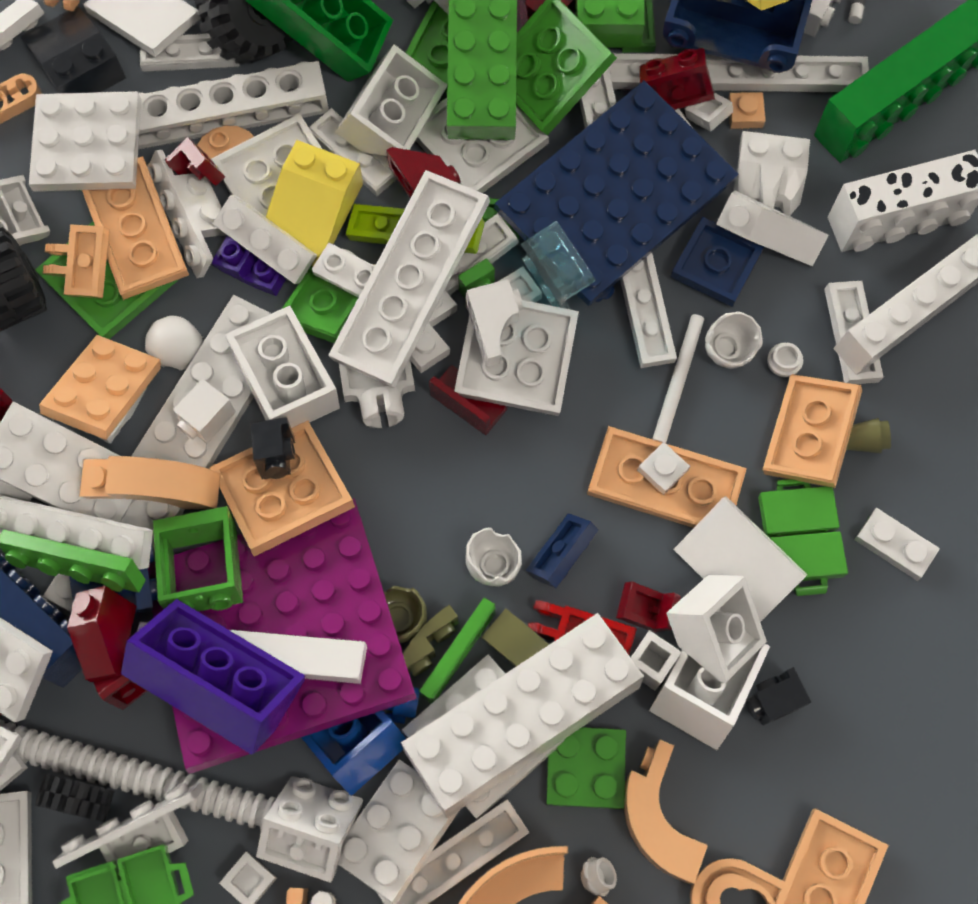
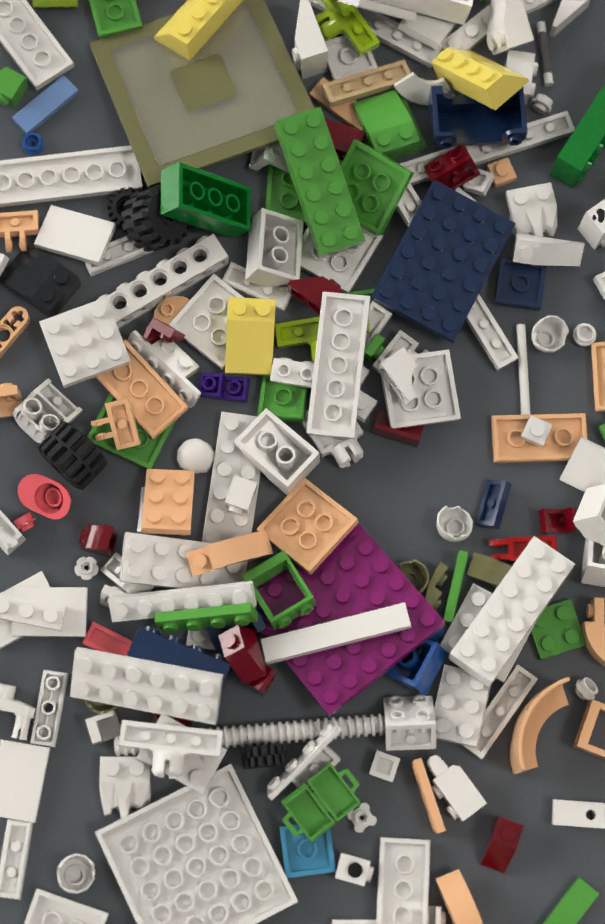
camera: 25 degrees left, 5 degrees up
(211, 675) = (324, 654): dark purple slope -> none
(264, 239) = (230, 369): white plate -> none
(273, 447) = (295, 503): black brick -> none
(556, 265) = (426, 324): clear light blue bracket -> none
(654, 659) = (574, 550): white brick -> none
(835, 39) = (542, 103): none -> white plate

